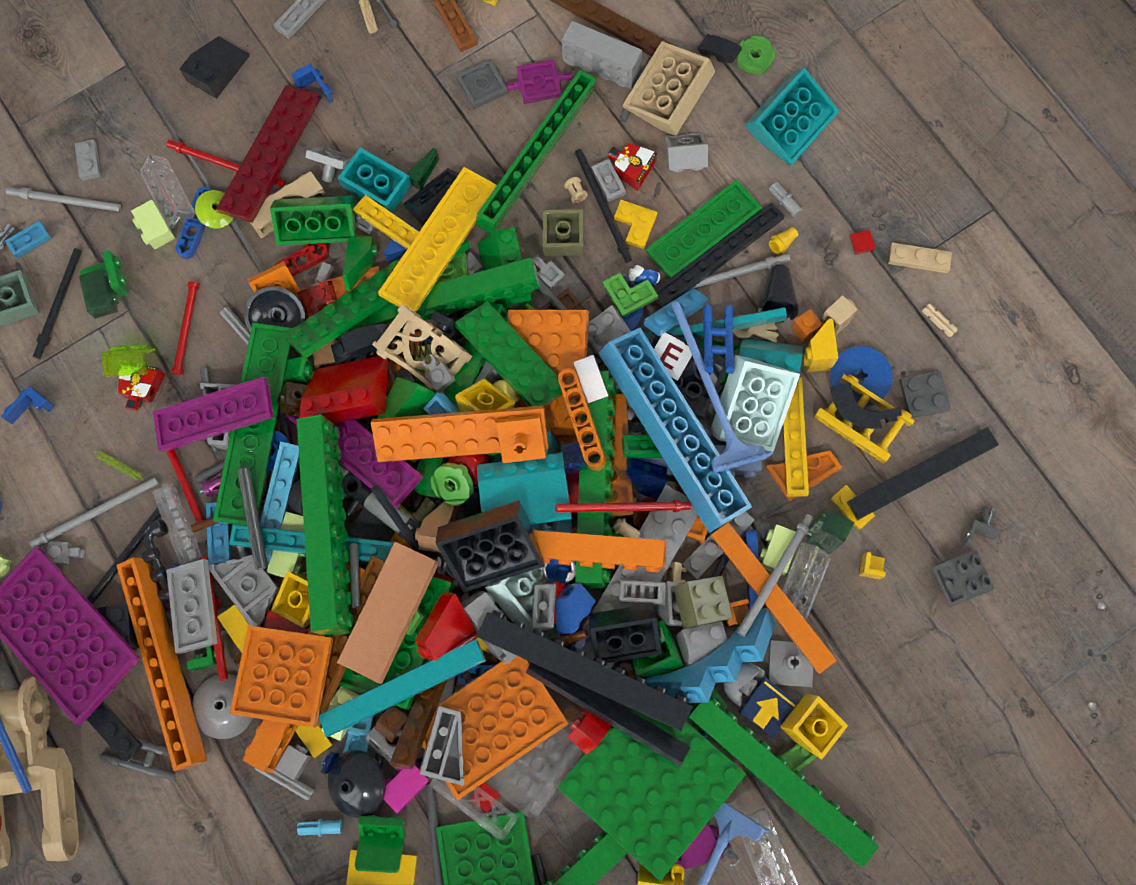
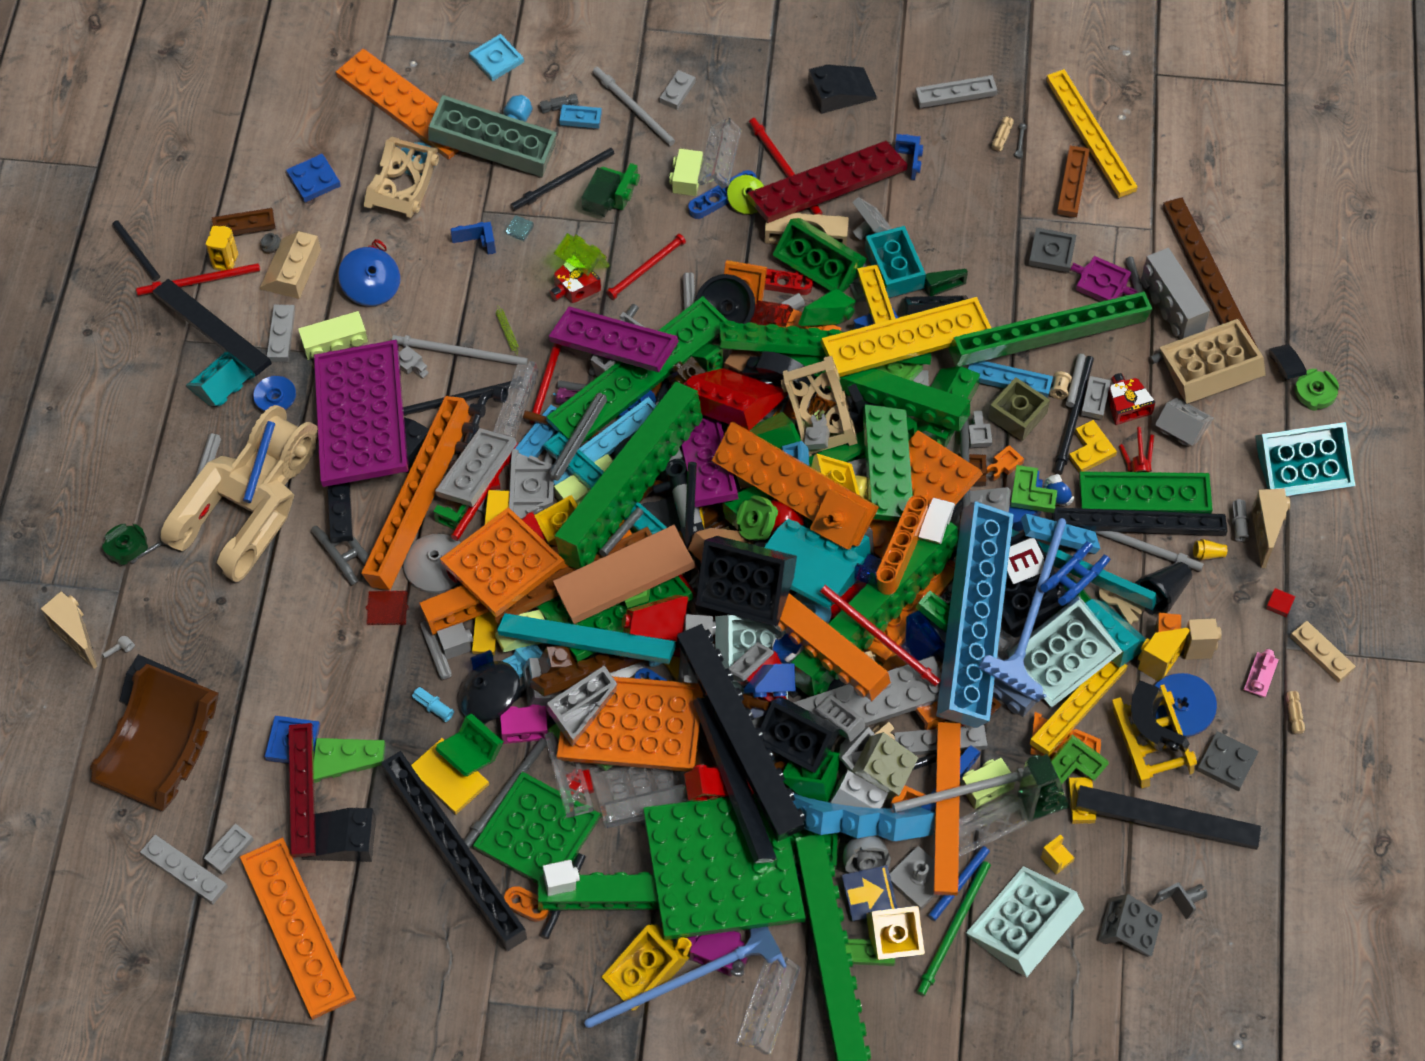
camera: 35 degrees right, 15 degrees down
(57, 371) = (519, 228): none -> clear light blue tile
(216, 775) = (387, 608): none -> clear red piece
(533, 211) = (1002, 376): none -> dark azure plate
(558, 62) = (1134, 275): none -> dark grey bar
(581, 174) = (1075, 380): none -> light grey bar
(586, 281) = (1005, 461): none -> orange plate
(682, 209) = (1139, 463): none -> red plant
(810, 186) = (1267, 517): none -> tan slope
(820, 631) = (962, 879): none -> blue bar
(825, 480) = (1077, 755): none -> bright green plate
(853, 710) = (928, 978): none -> green bar
(891, 635) = (1026, 920): none -> light aqua slope
(894, 308) = (1261, 673): none -> bright pink hinge

